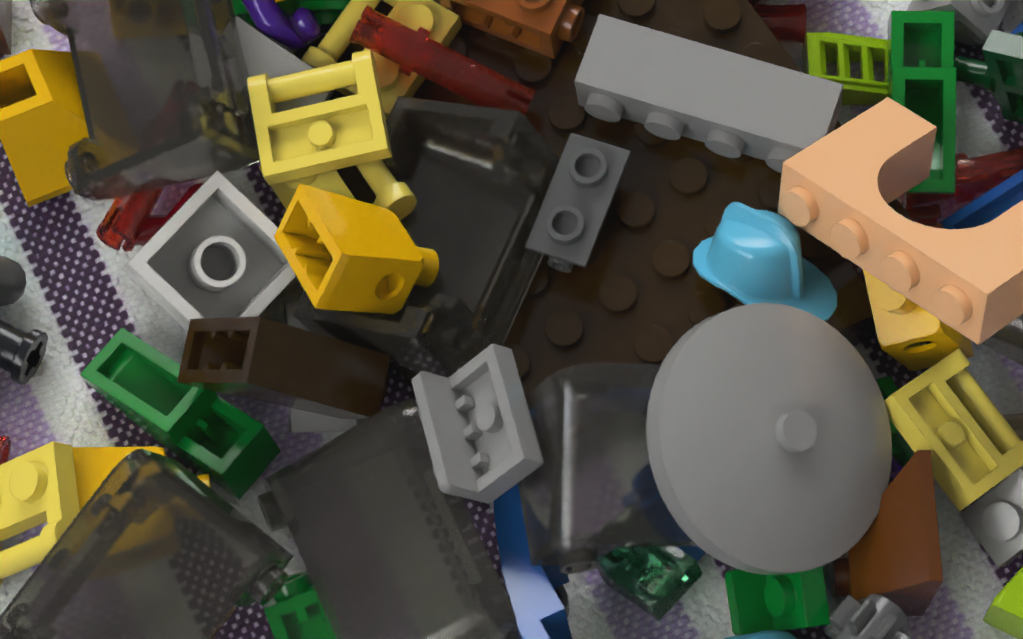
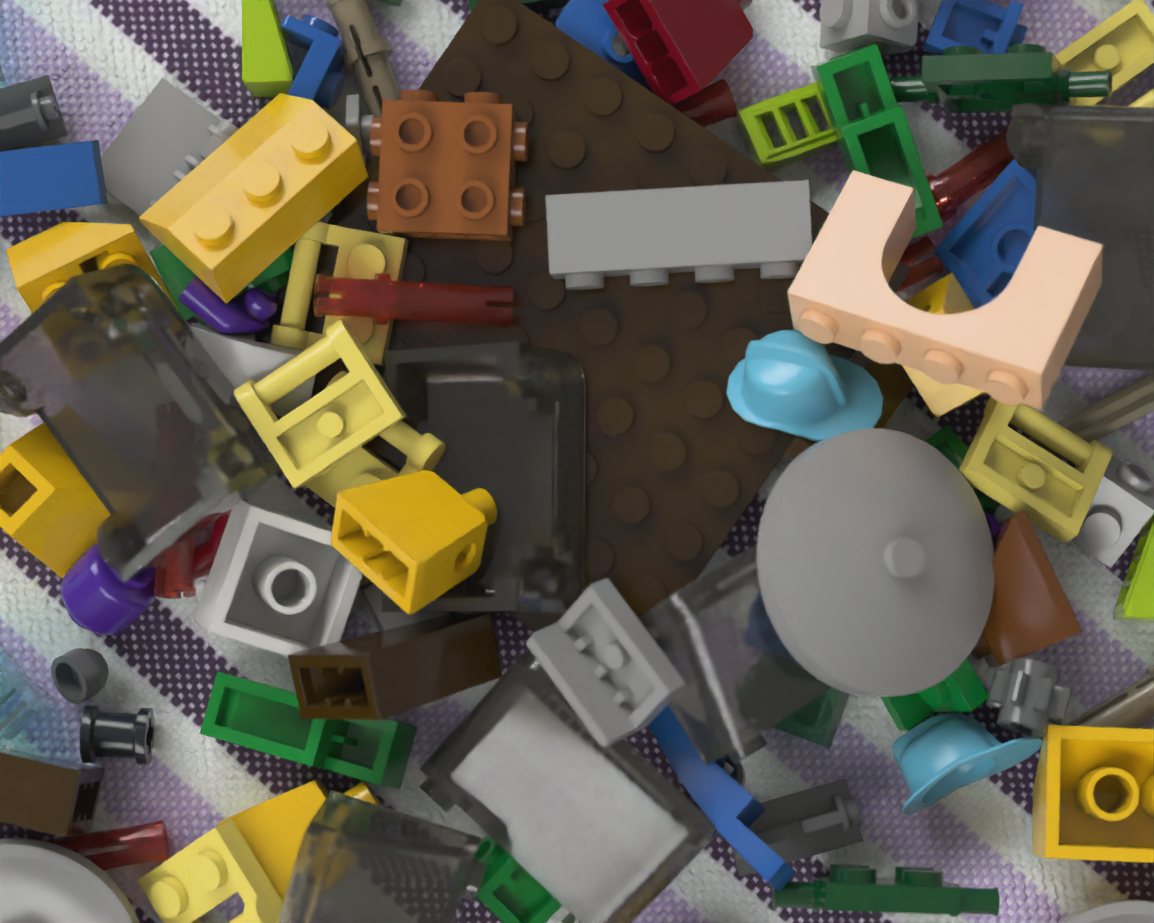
camera: 20 degrees left, 15 degrees up
(55, 219) = (101, 599): none -> dark purple head
(577, 202) = (600, 388): dark grey hinge -> none

